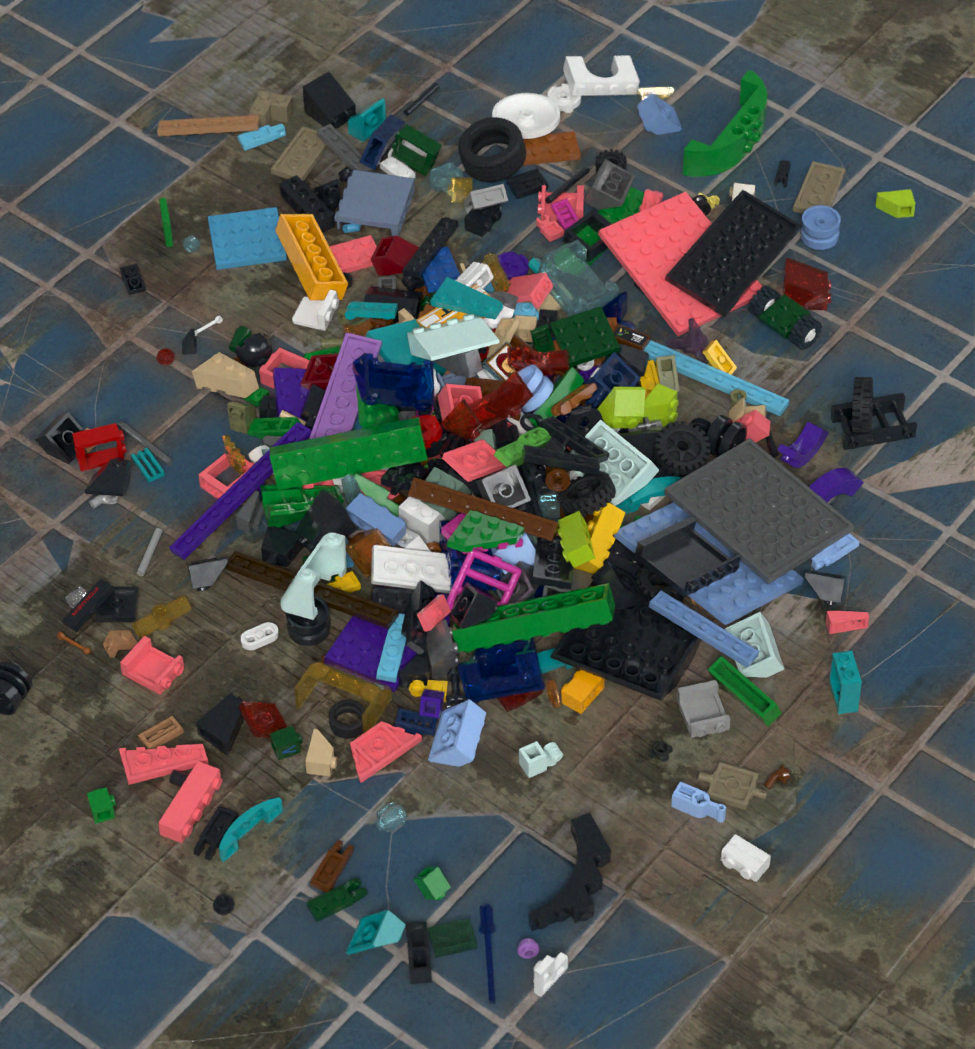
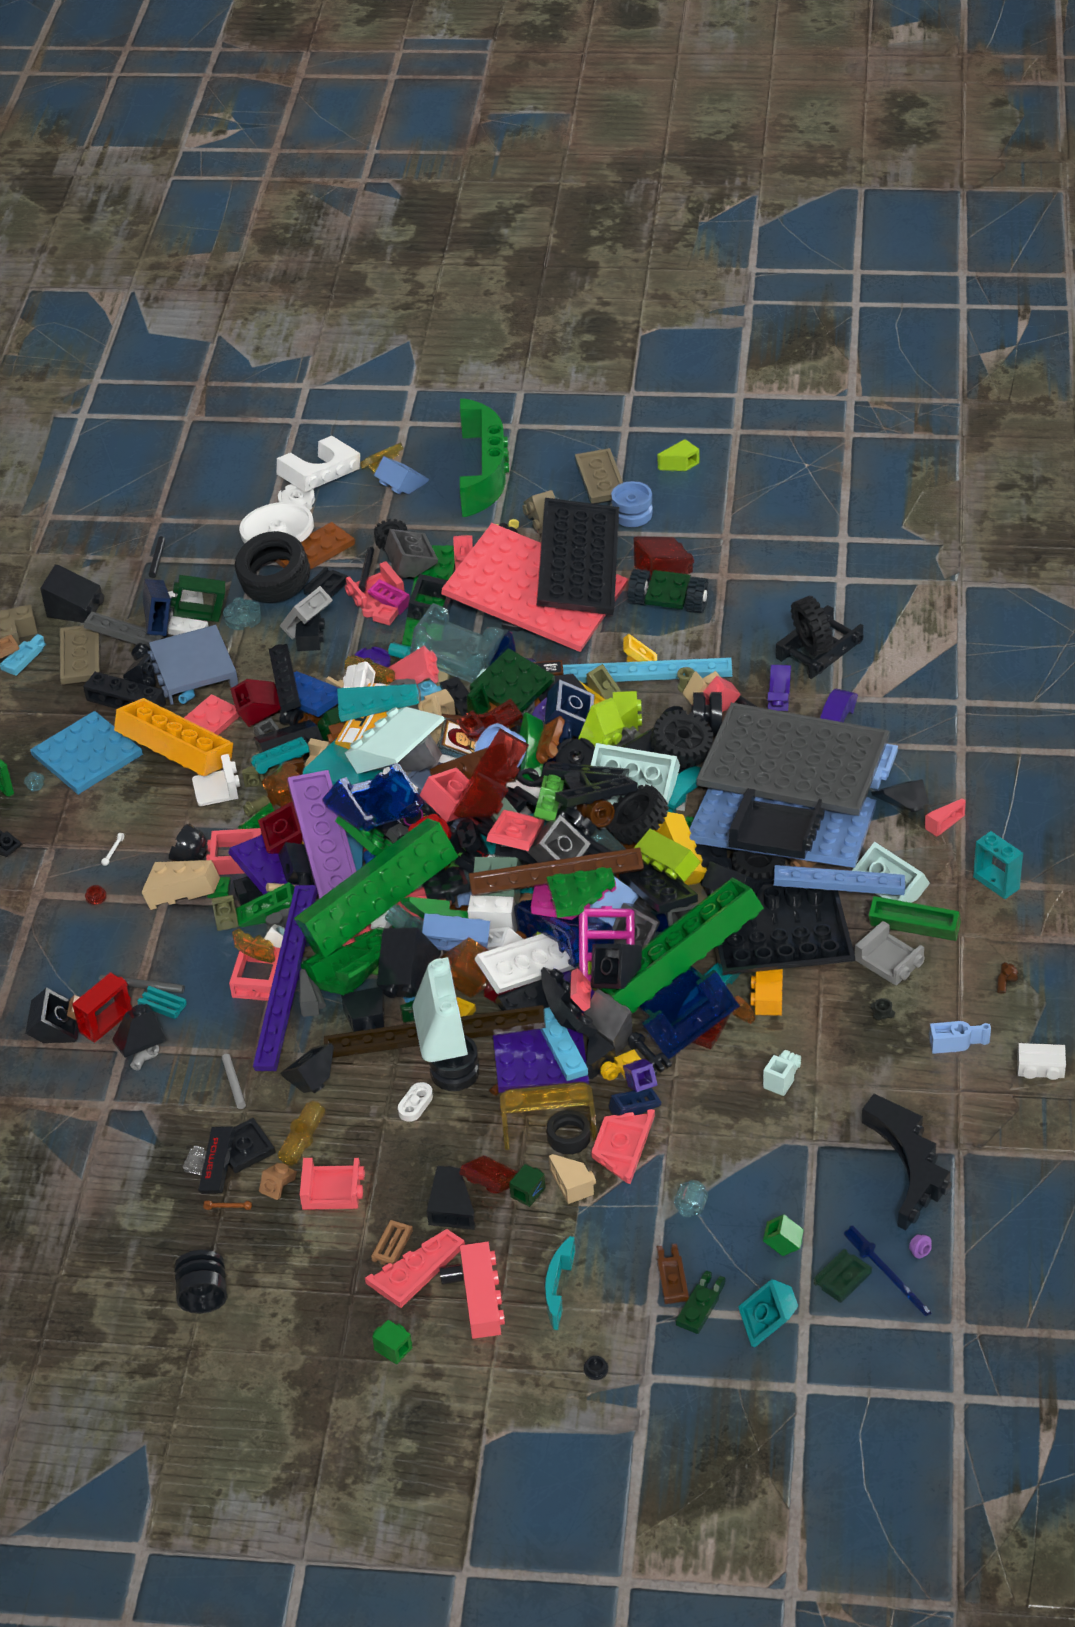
camera: 30 degrees left, 5 degrees down
(189, 343) = (110, 871): black slope -> none
(214, 831) = (529, 1303): black hinge -> none
(238, 337) = (159, 842): dark green cone -> none
(367, 120) = (122, 594): teal slope -> none
(418, 952) = (824, 1306): black slope -> none
(457, 734) = (686, 1091): light blue slope -> none
(460, 188) = (268, 615): clear yellow brick -> none
(548, 971) = (961, 1256): white plate -> none
(691, 343) = (602, 649): clear purple piece -> none
(732, 785) = (974, 1004): dark tan plate -> none
(783, 172) = (555, 476): black bar -> none

